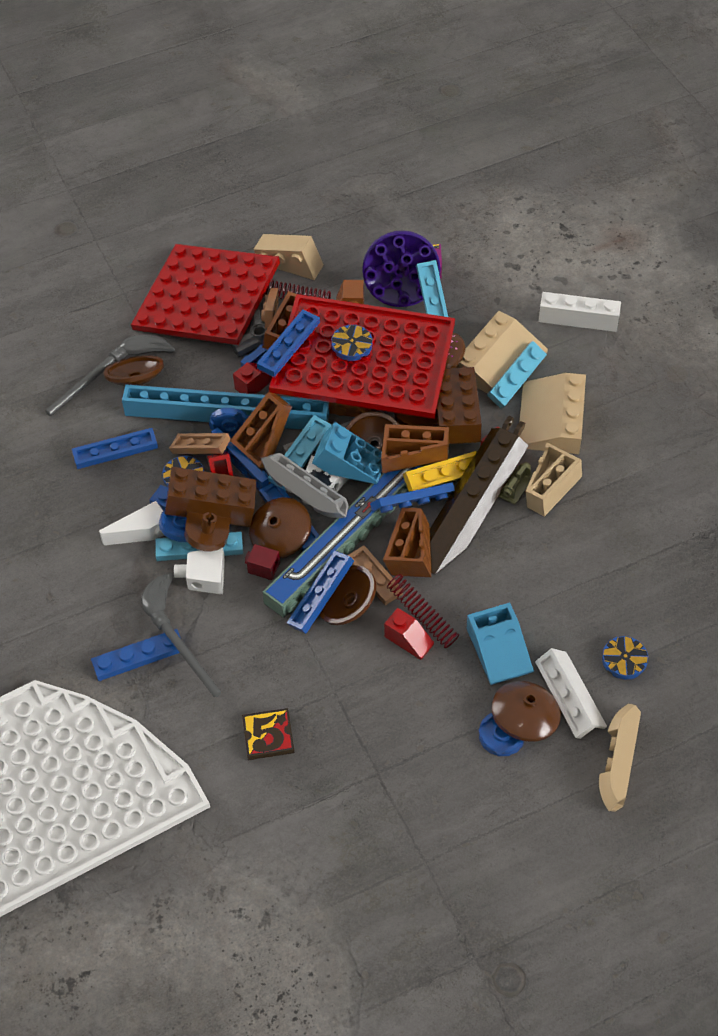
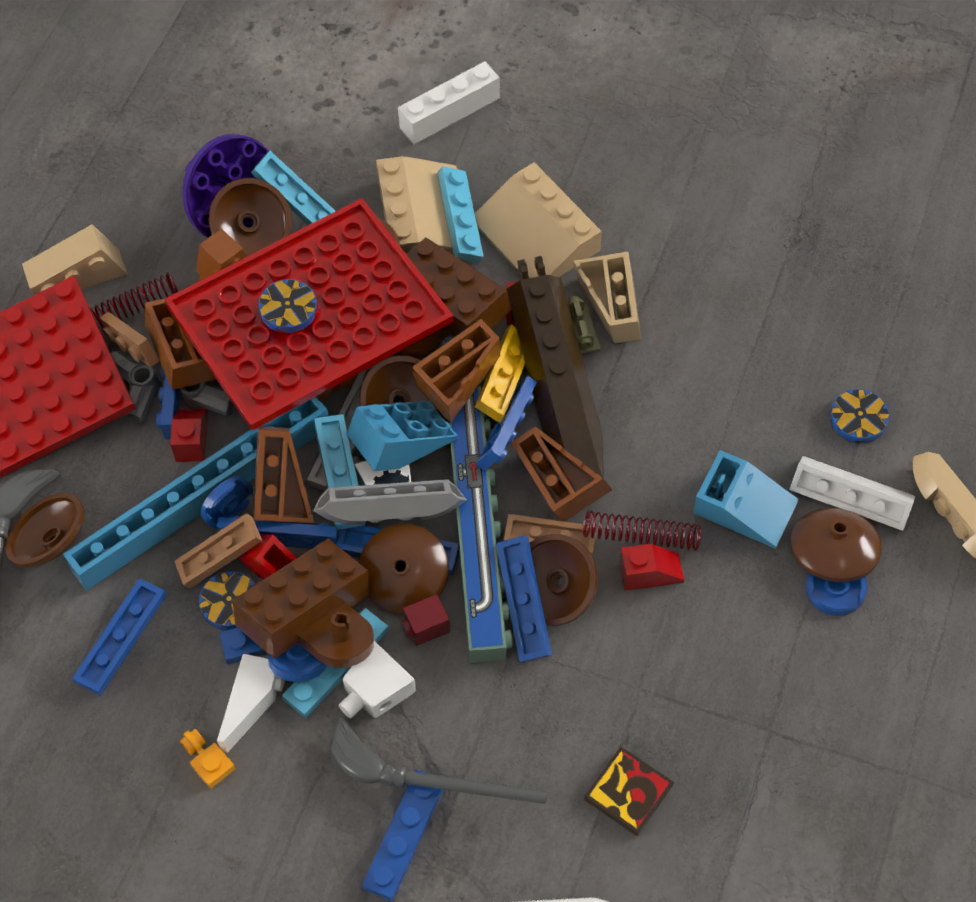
camera: 45 degrees left, 5 degrees up
(90, 543) = (210, 763): none -> light orange plate
(288, 343) = (222, 359): blue plate -> none
(390, 278) = (253, 201): none -> reddish brown dish

